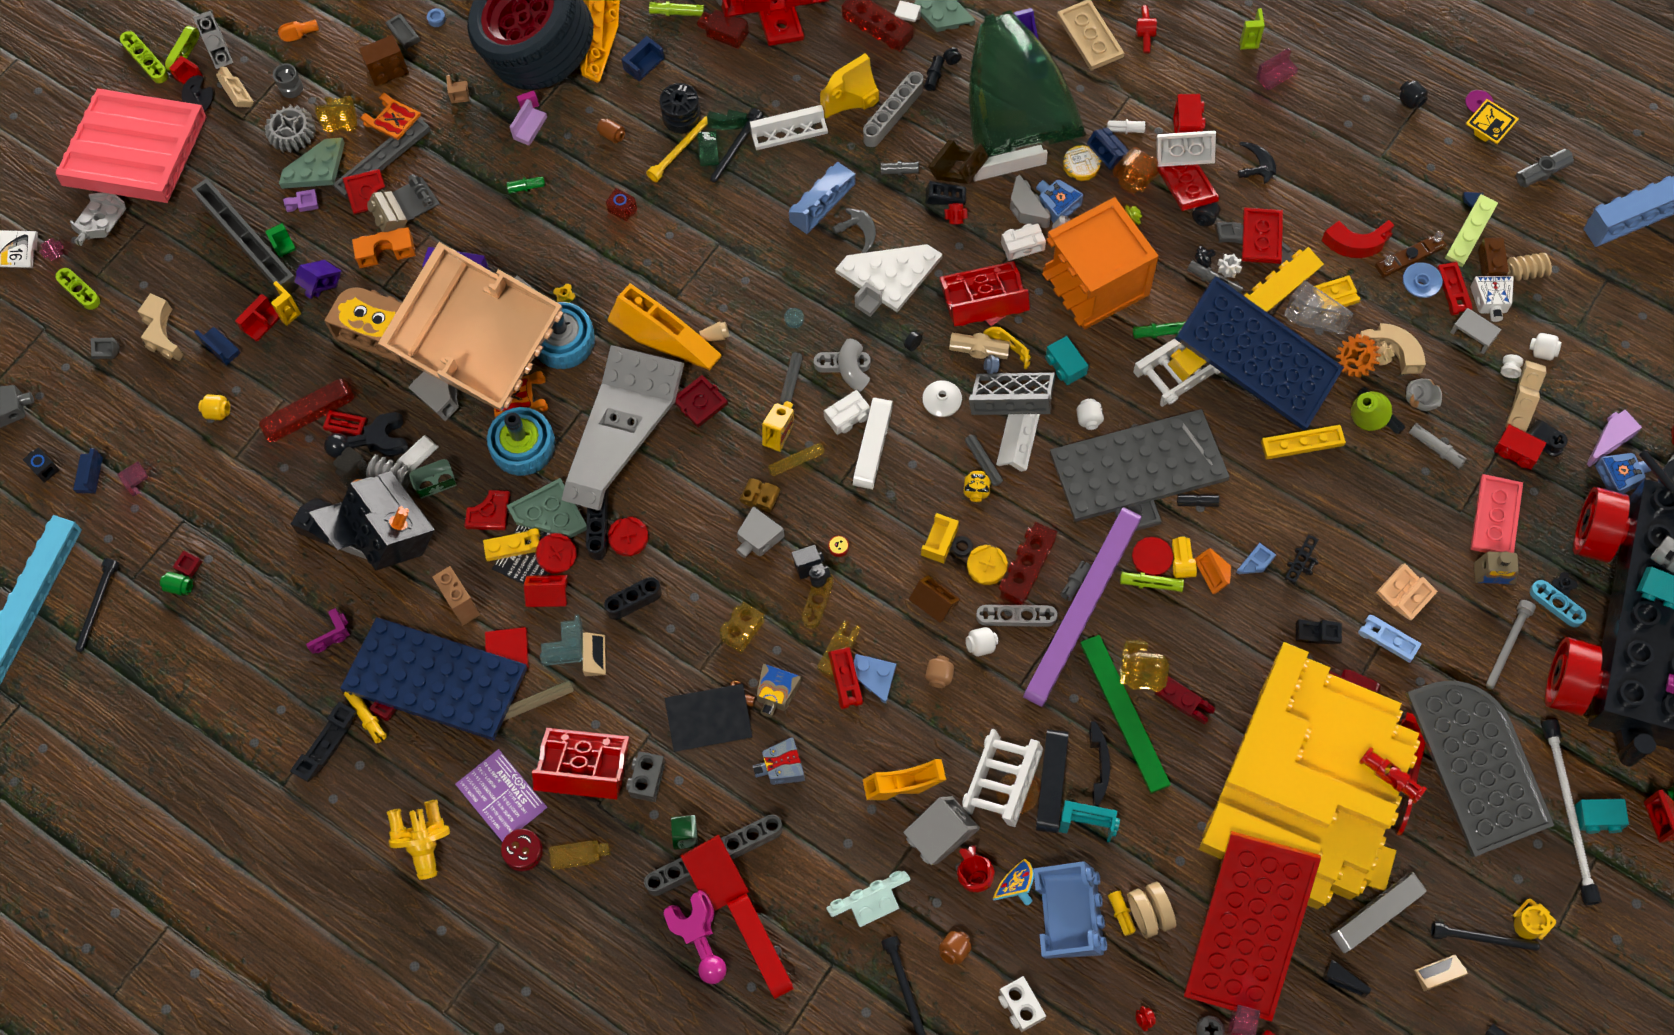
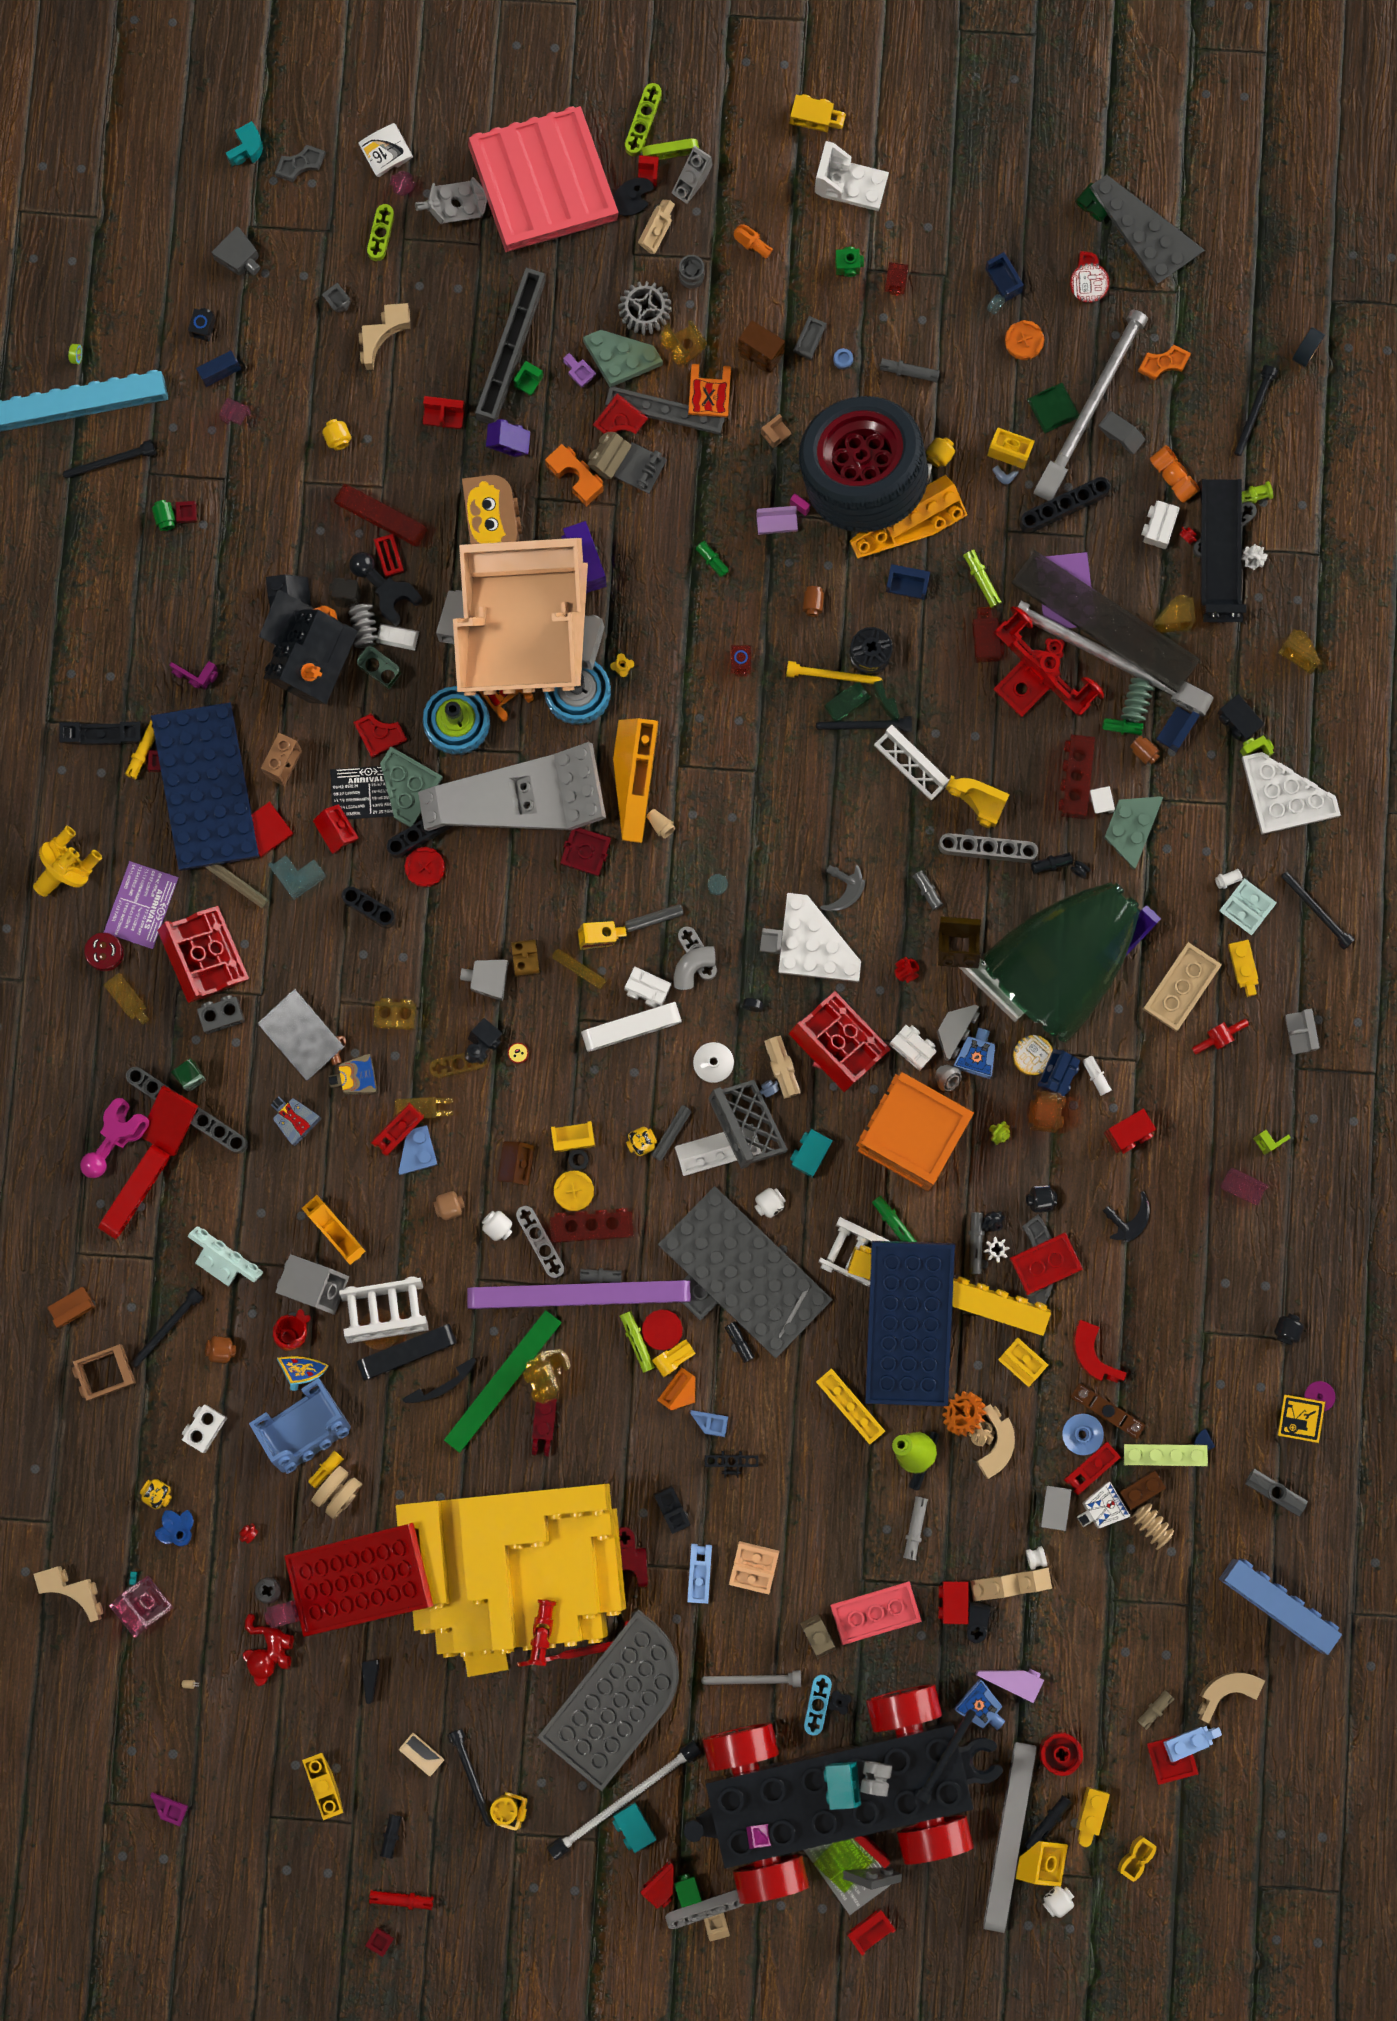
camera: 55 degrees right, 15 degrees up
(218, 345) = (397, 395): dark blue panel -> none
(285, 305) = (464, 432): yellow panel -> none
(511, 545) = (359, 773): yellow plate -> none
(555, 553) = (372, 816): red tile -> none
(594, 654) = (302, 905): tan slope -> none
(821, 197) = (854, 837): medium blue wedge -> none
(937, 199) = (919, 951): black slope -> none
(1000, 334) = (804, 1078): yellow piece -> none
(1108, 821) = (384, 1381): teal panel -> none
(1185, 148) = (1095, 1145): white slope -> none
(1188, 185) = (1063, 1163): red tile -> none
(1317, 310) = (988, 1348): clear slope -> none
(1378, 912) = (443, 1679): light grey beam -> none
(1423, 394) = (958, 1491): light grey hair -> none
(1545, 346) = (1075, 1579): white head -> none

